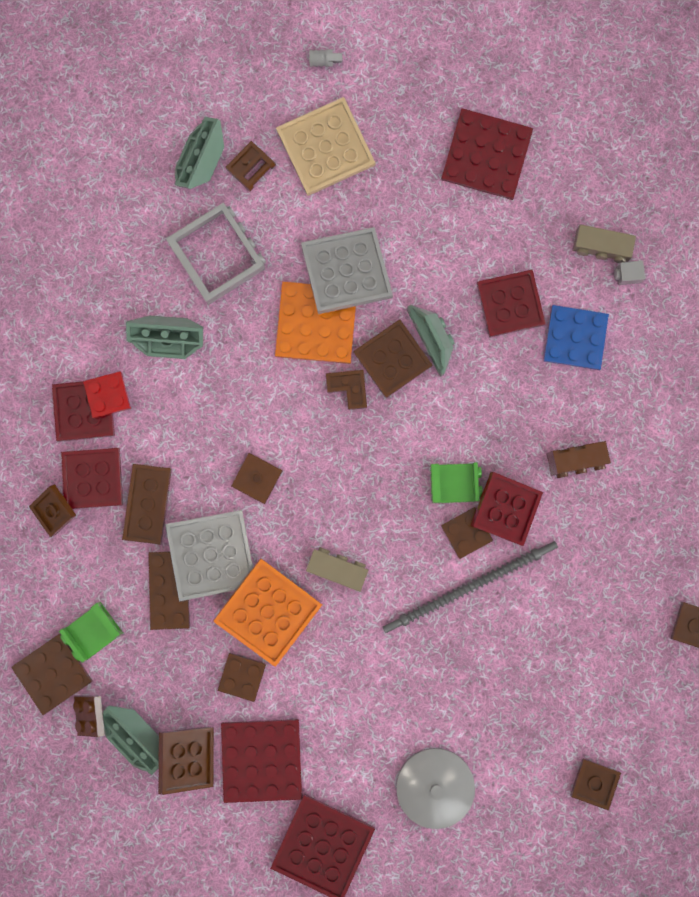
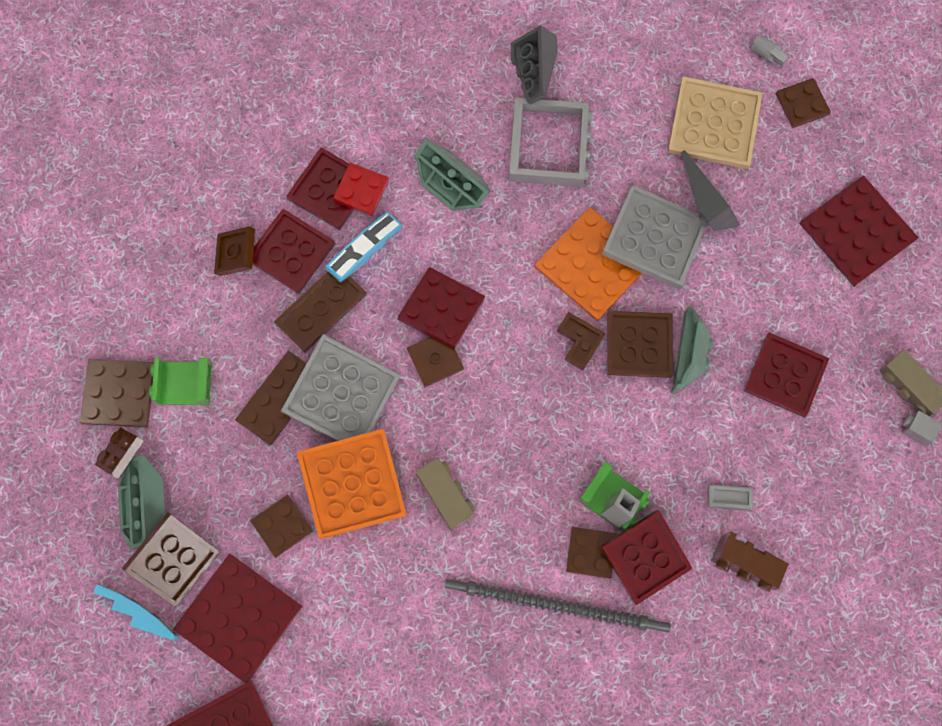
camera: 30 degrees right, 10 degrees down
(142, 436) = (363, 246): none -> slope
(157, 196) = (534, 60): none -> dark grey wedge
(196, 810) = (141, 616): none -> medium azure slope
(200, 154) = (600, 52): sand green wedge -> none
(233, 438) = (441, 308): none -> dark red plate
(246, 161) = (635, 86): reddish brown plate -> none
(370, 217) = (709, 202): none -> dark grey wedge
(378, 81) = (803, 103): none -> reddish brown plate
(465, 488) = (620, 508): none -> light grey brick
(533, 421) = (730, 497): none -> light grey tile
(576, 337) = (827, 450): blue plate -> none

